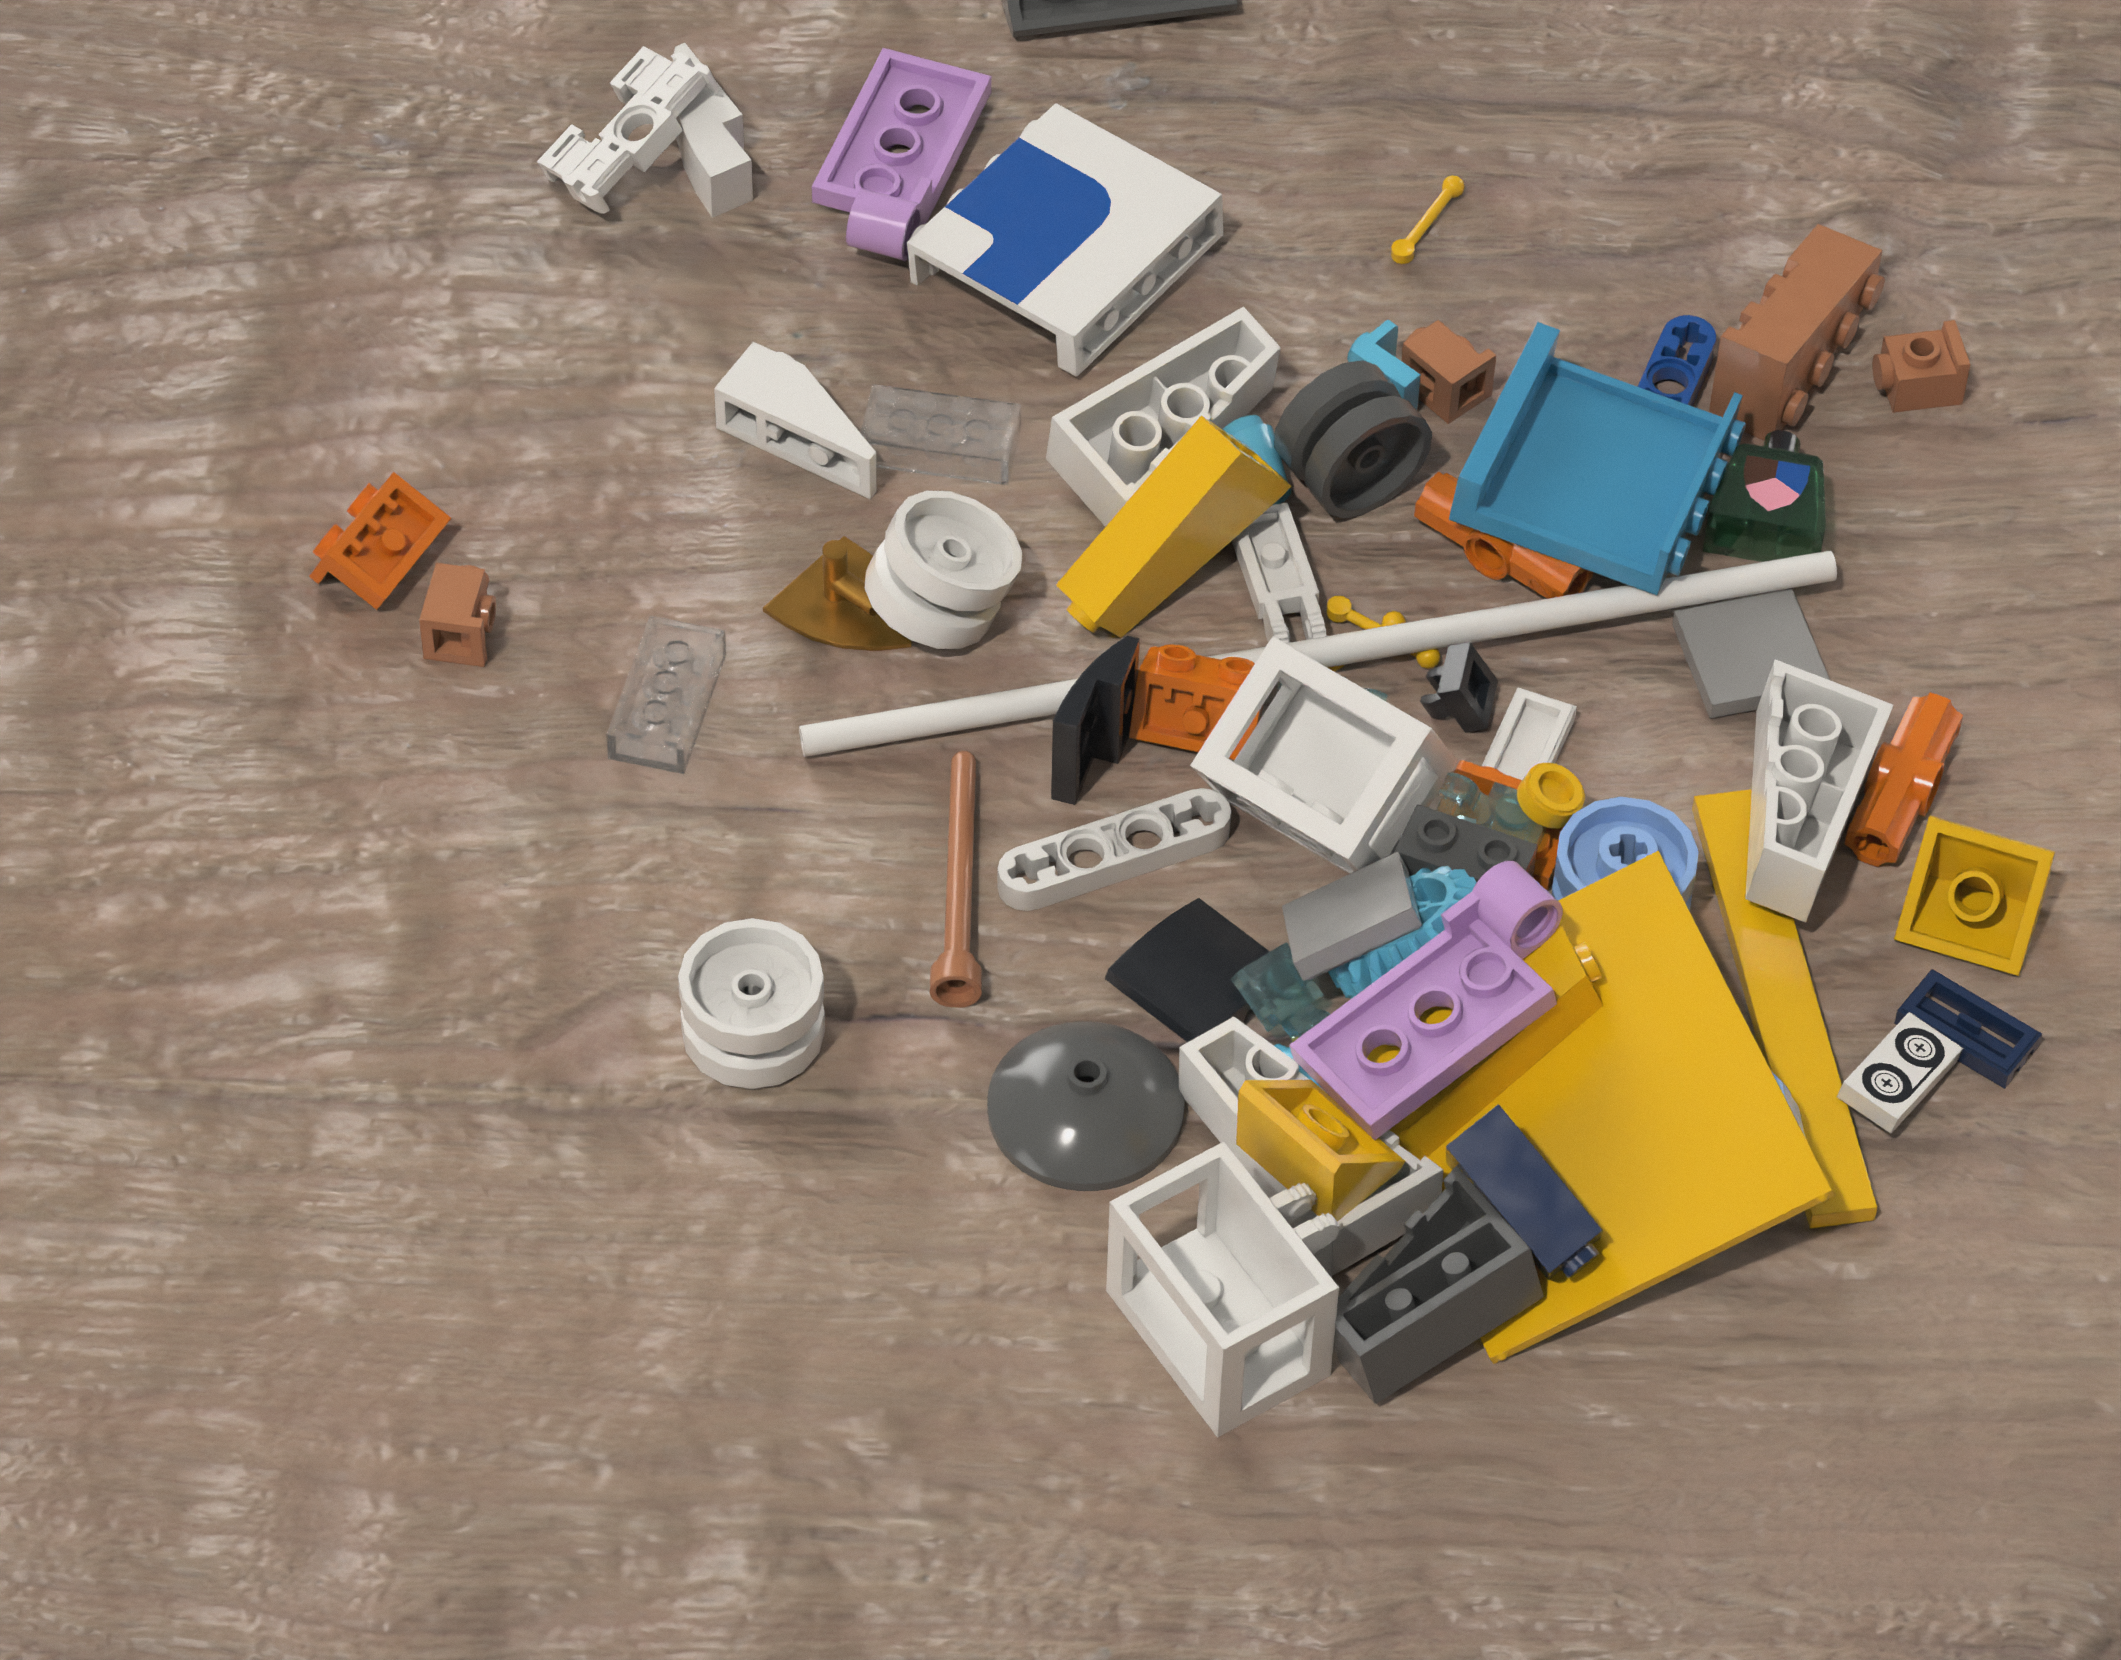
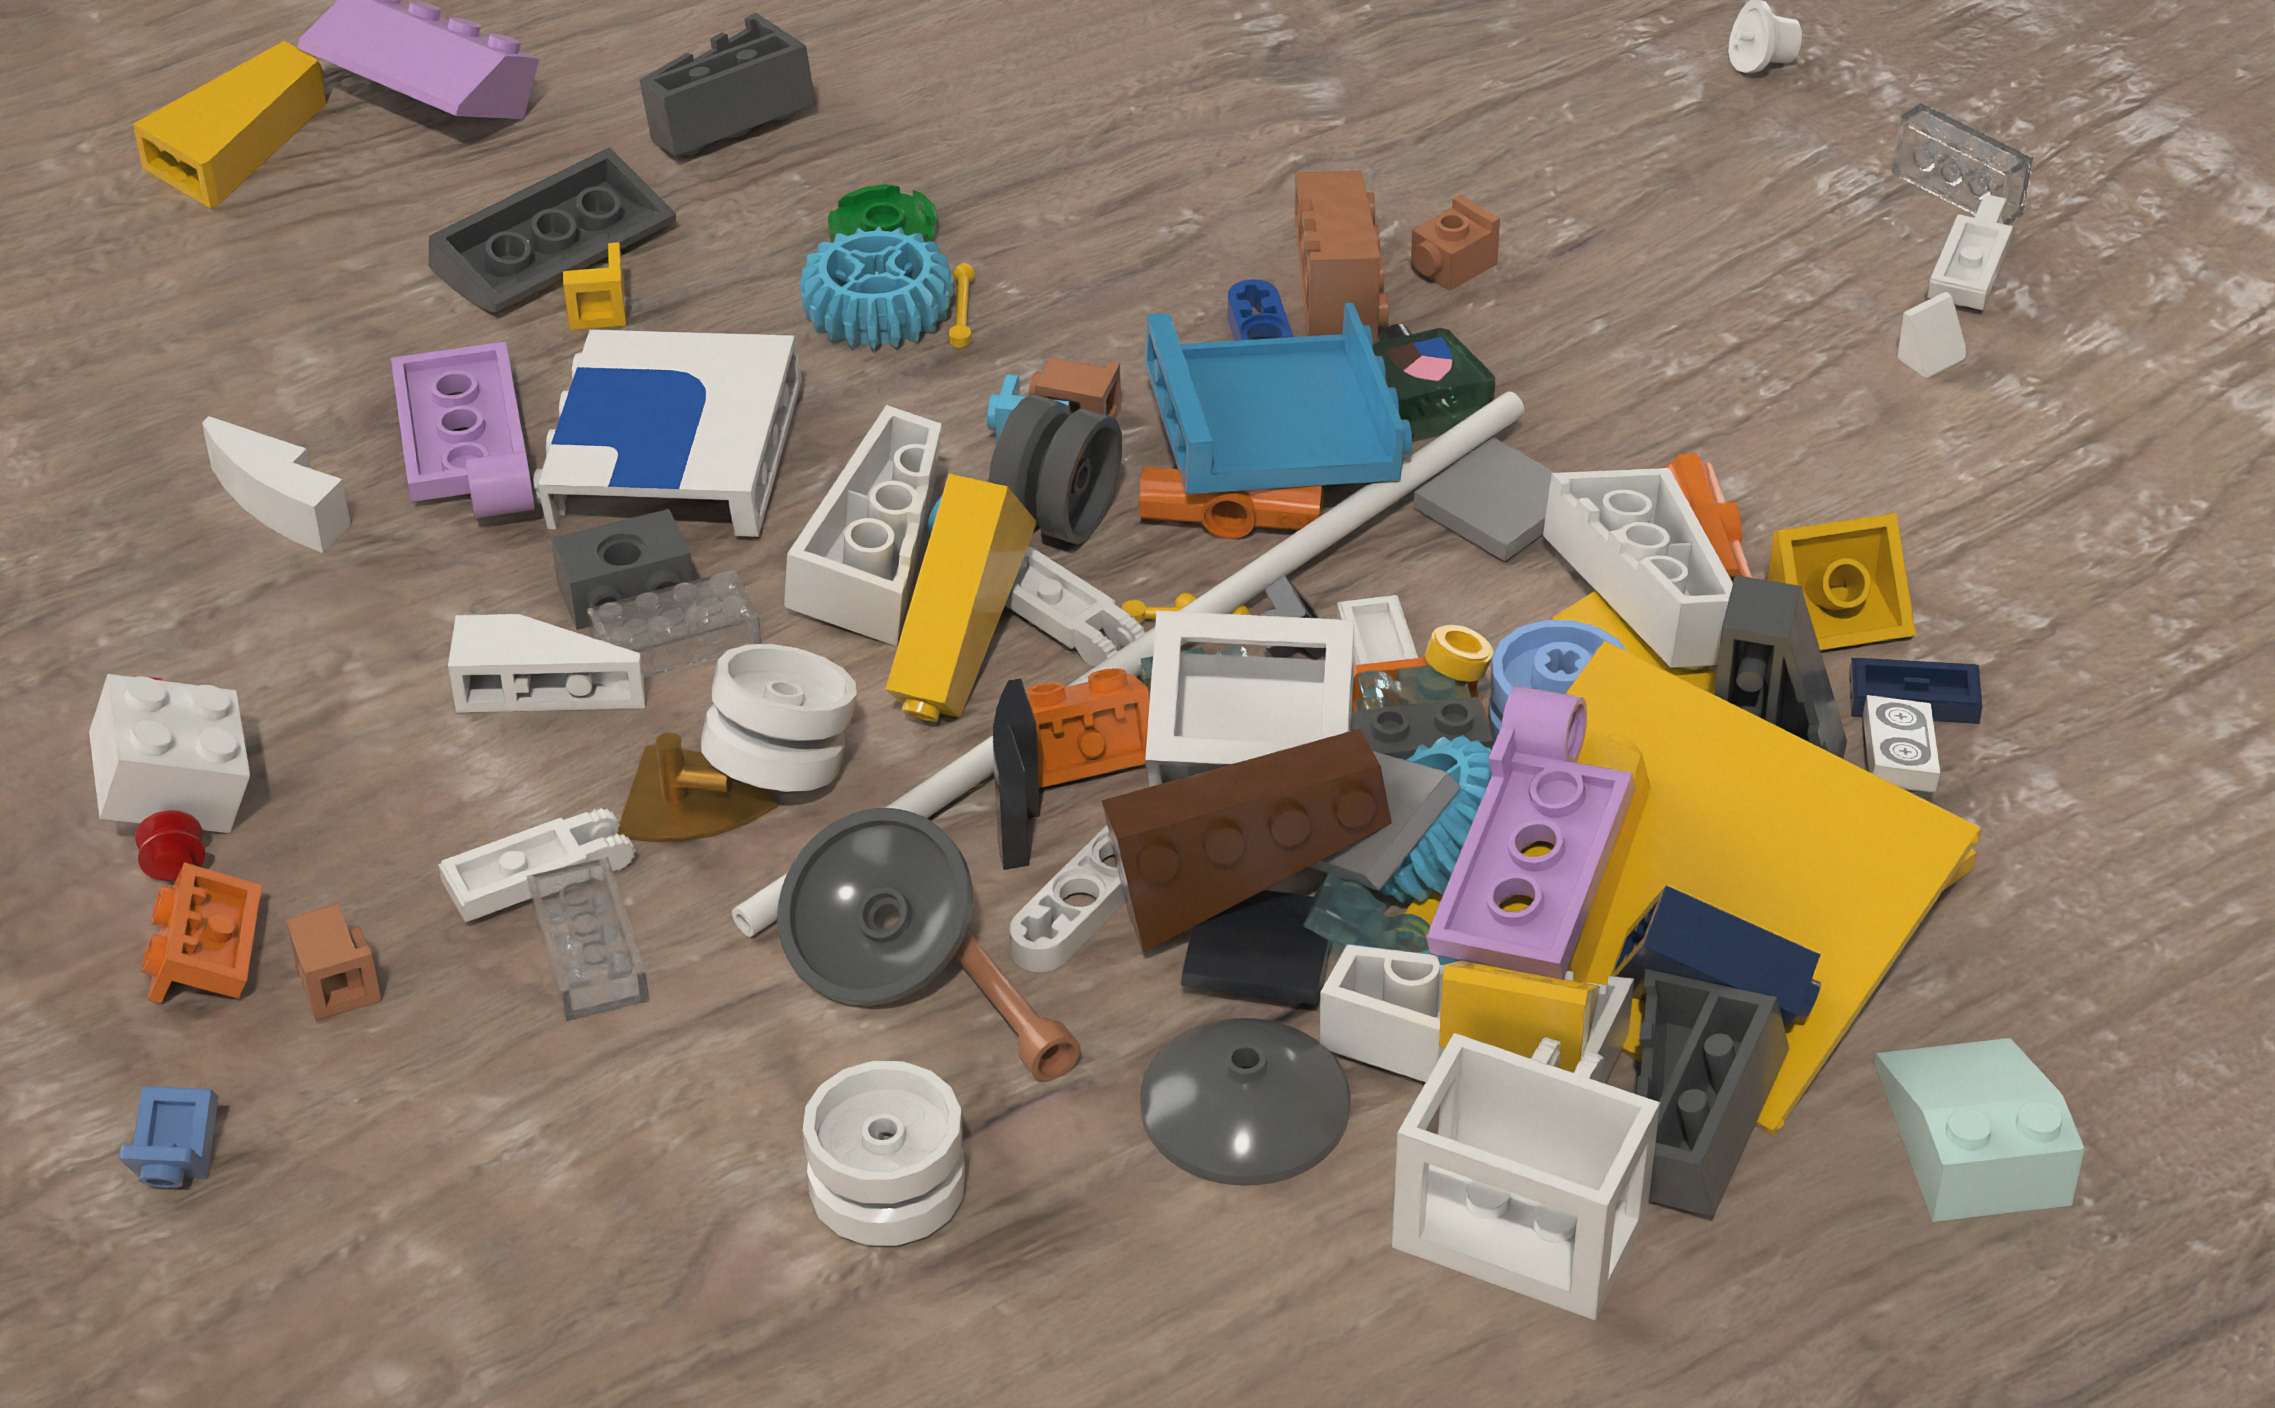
camera: 30 degrees left, 10 degrees down
(245, 708) = (172, 1135): none -> medium blue bracket
(441, 373) = (168, 762): none -> white brick
(628, 597) = (497, 872): none -> white hinge
(660, 95) = (203, 537): white piece -> none
(879, 769) = (847, 888): none -> dark grey dish
(932, 351) = (619, 562): none -> dark grey brick
(1108, 62) = (596, 295): none -> yellow panel
(1223, 867) = (1240, 829): none -> reddish brown wedge
(1355, 167) = (876, 287): none -> medium azure gear
(1420, 99) = (884, 207): none -> green tile
(1658, 1445) = (1982, 1129): none -> light aqua slope
(1785, 968) = (1775, 663): none -> dark grey wedge

